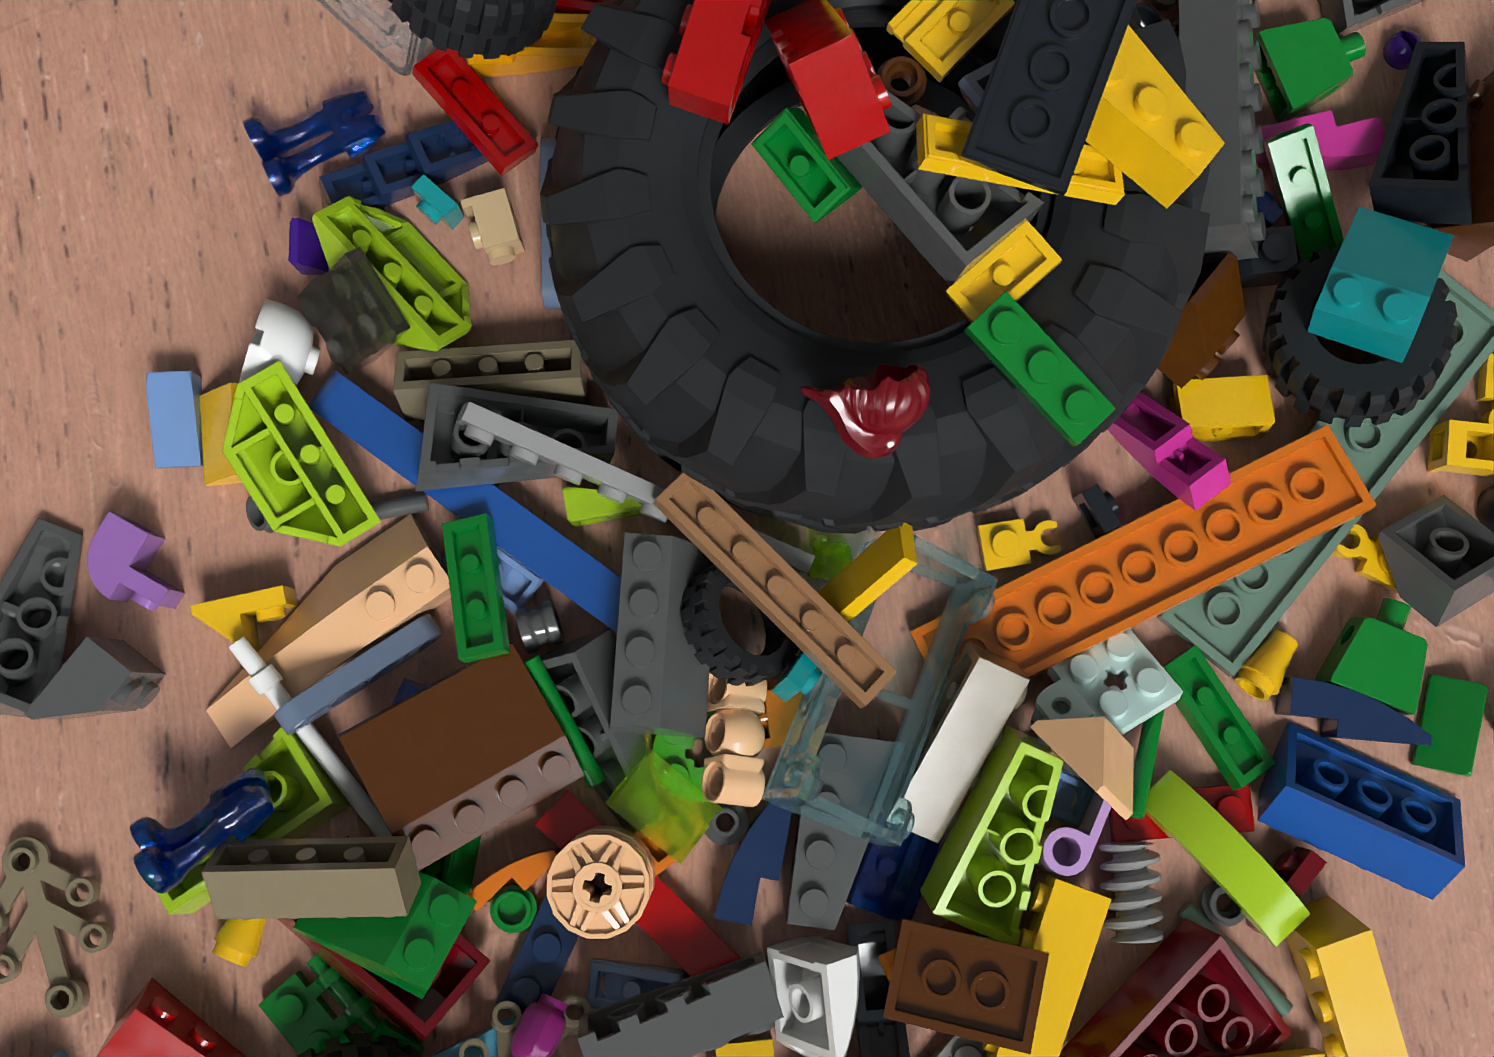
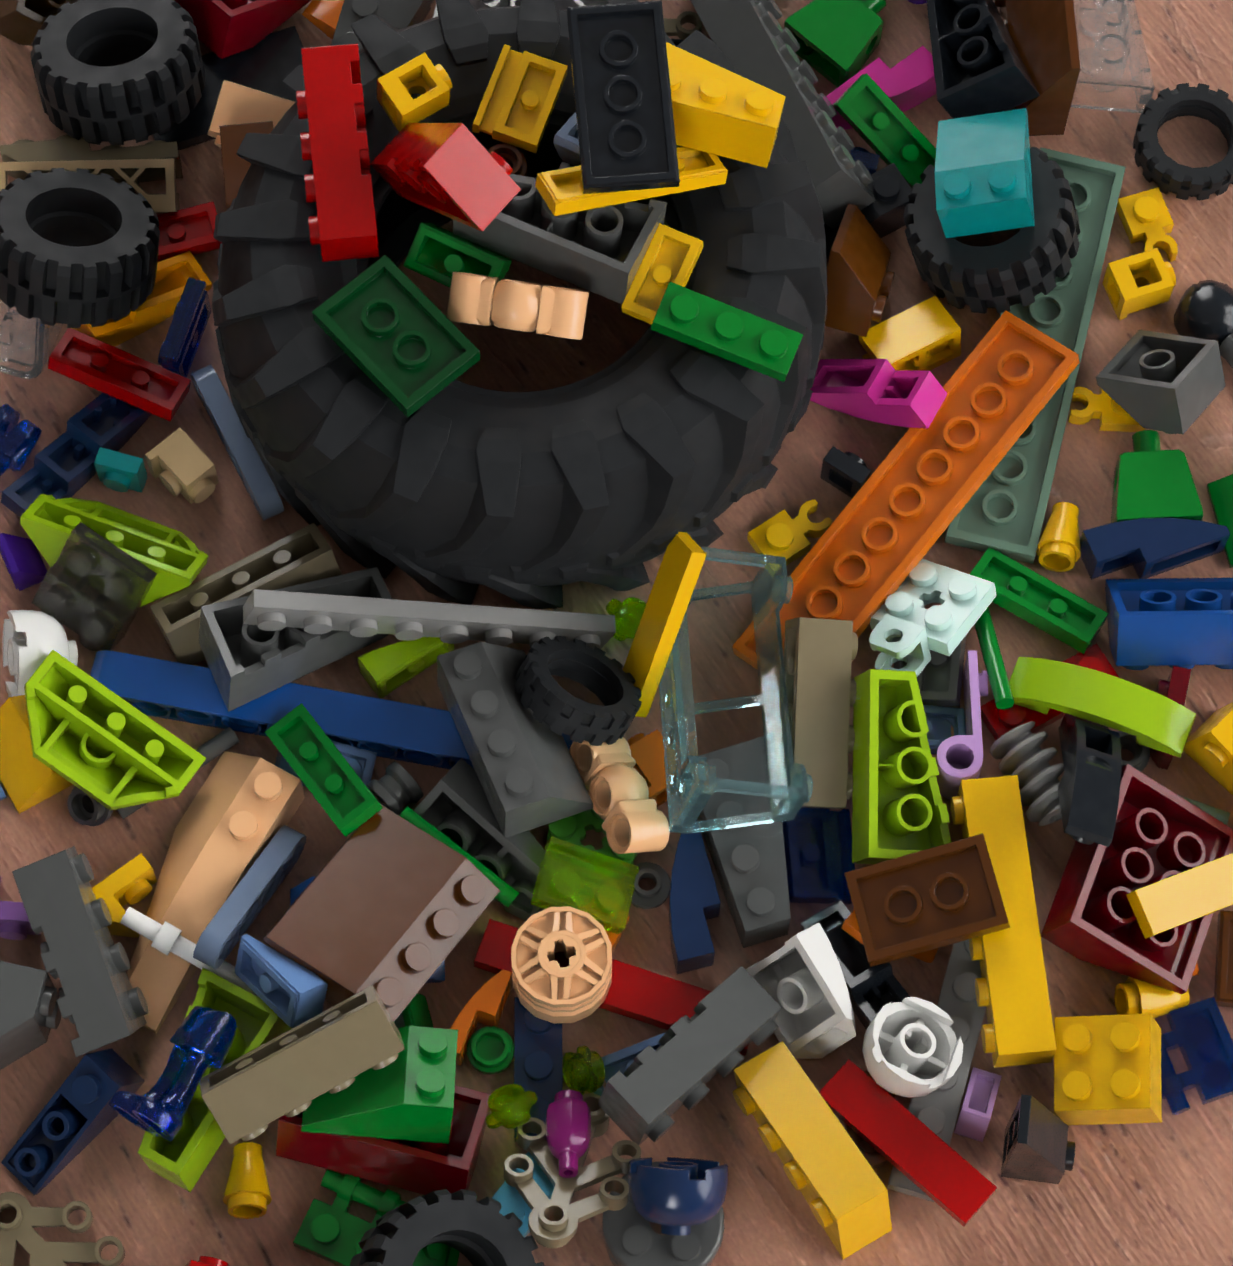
camera: 25 degrees left, 15 degrees down
(121, 798) = (71, 1119): none -> dark blue slope
(178, 663) = (81, 950): none -> dark grey wedge
(340, 787) = (280, 982): none -> medium blue slope
(497, 972) = (510, 1106): none -> clear neon green plate
(535, 107) = (186, 328): none -> clear blue plate
(584, 972) = (583, 1070): none -> clear neon green plate
(702, 221) = (396, 335): none -> dark green plate
(776, 588) = (594, 640): medium nougat plate -> none
(798, 677) = (652, 712): teal plate -> none
(841, 242) = (517, 305): none -> light nougat piece
(875, 408) = (611, 416): dark red hair -> none
(1096, 755) = (941, 659): light nougat slope -> none
(1177, 940) = (1090, 780): none -> black slope

